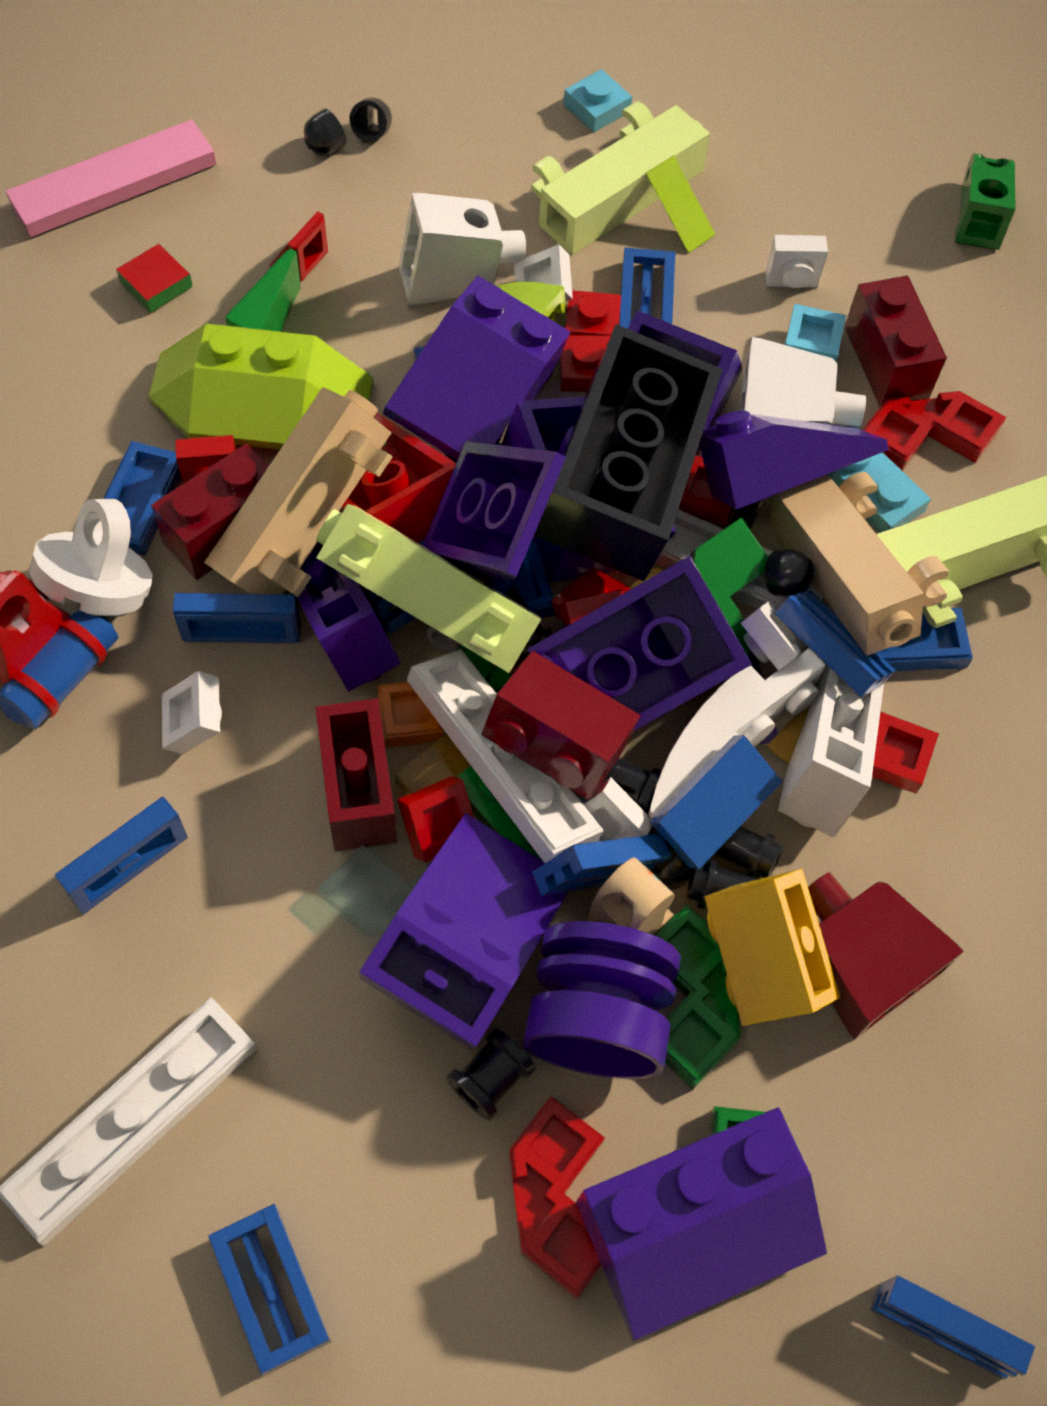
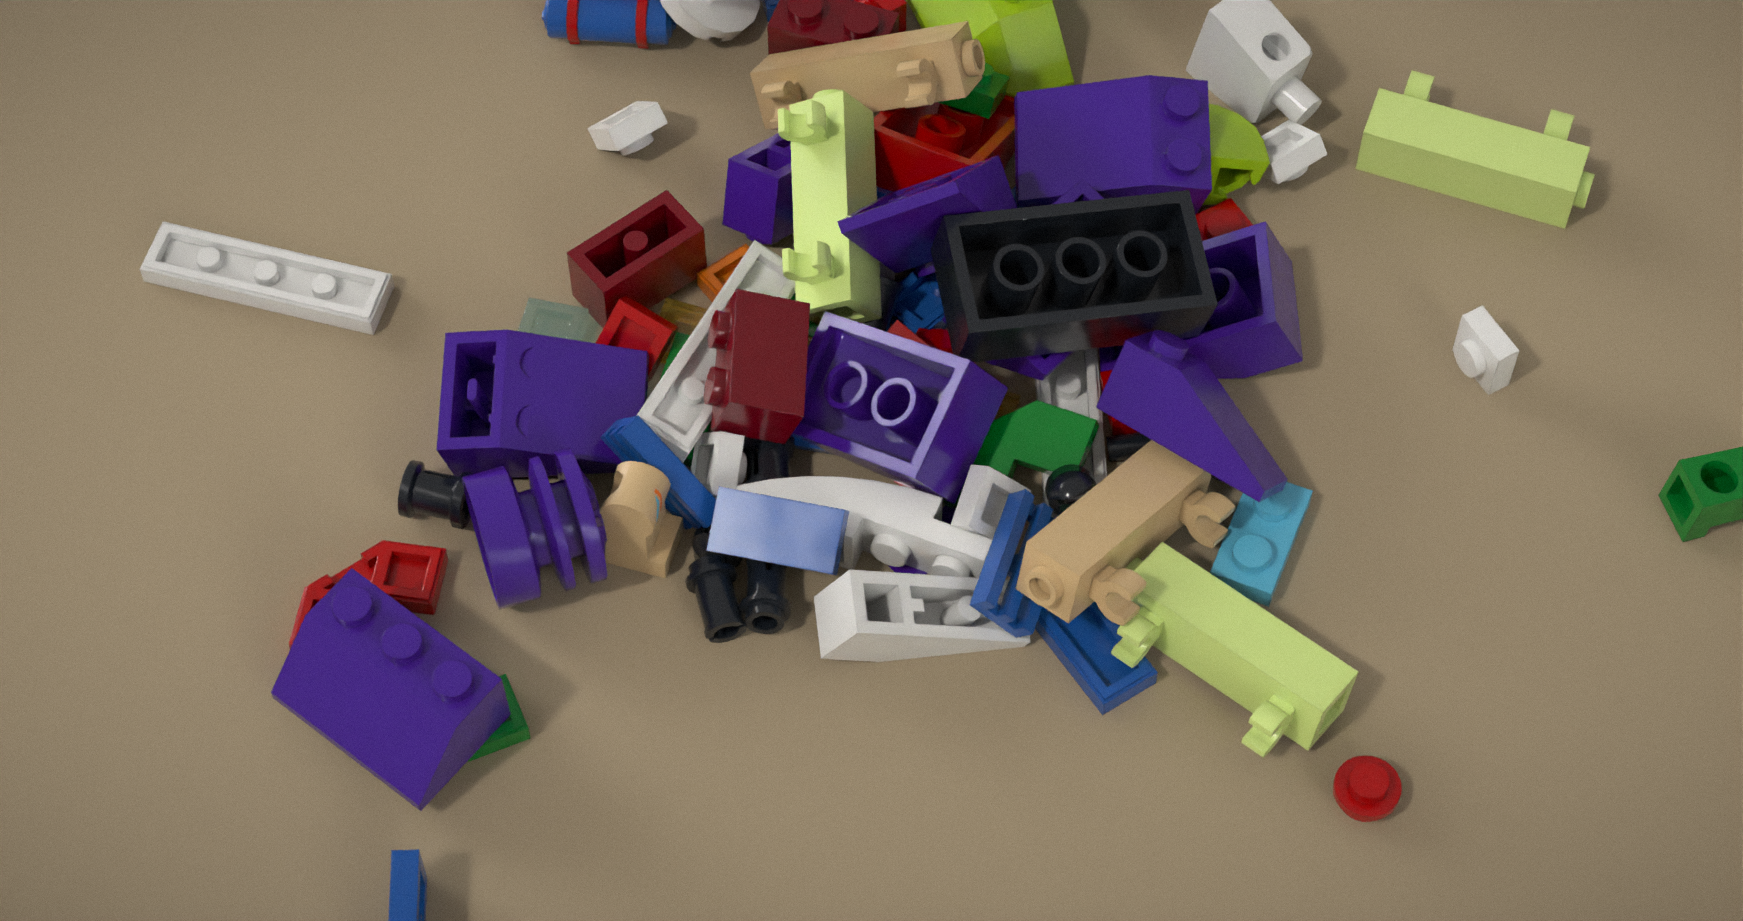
camera: 65 degrees right, 5 degrees down
(122, 855) = (471, 149): blue tile -> none
(237, 617) = (733, 101): blue tile -> none
(293, 1347) = (193, 443): blue tile -> none
(592, 313) = (1285, 213): red plate -> none
(597, 100) = (1574, 90): medium azure plate -> none
(648, 259) = (1352, 257): blue tile -> none
(680, 203) = (1477, 218): lime sticker -> none
(706, 1021) = (586, 640): green tile -> none
(771, 948) = (661, 633): yellow brick -> none
(796, 386) = (1301, 415): white torso -> none
(815, 331) = (1402, 409): medium azure plate -> none
(877, 949) = (719, 733): dark red torso -> none
(894, 340) = (1442, 477): dark red brick -> none
(902, 752) = (949, 678): red plate -> none
(949, 419) = (1361, 541): red tile -> none

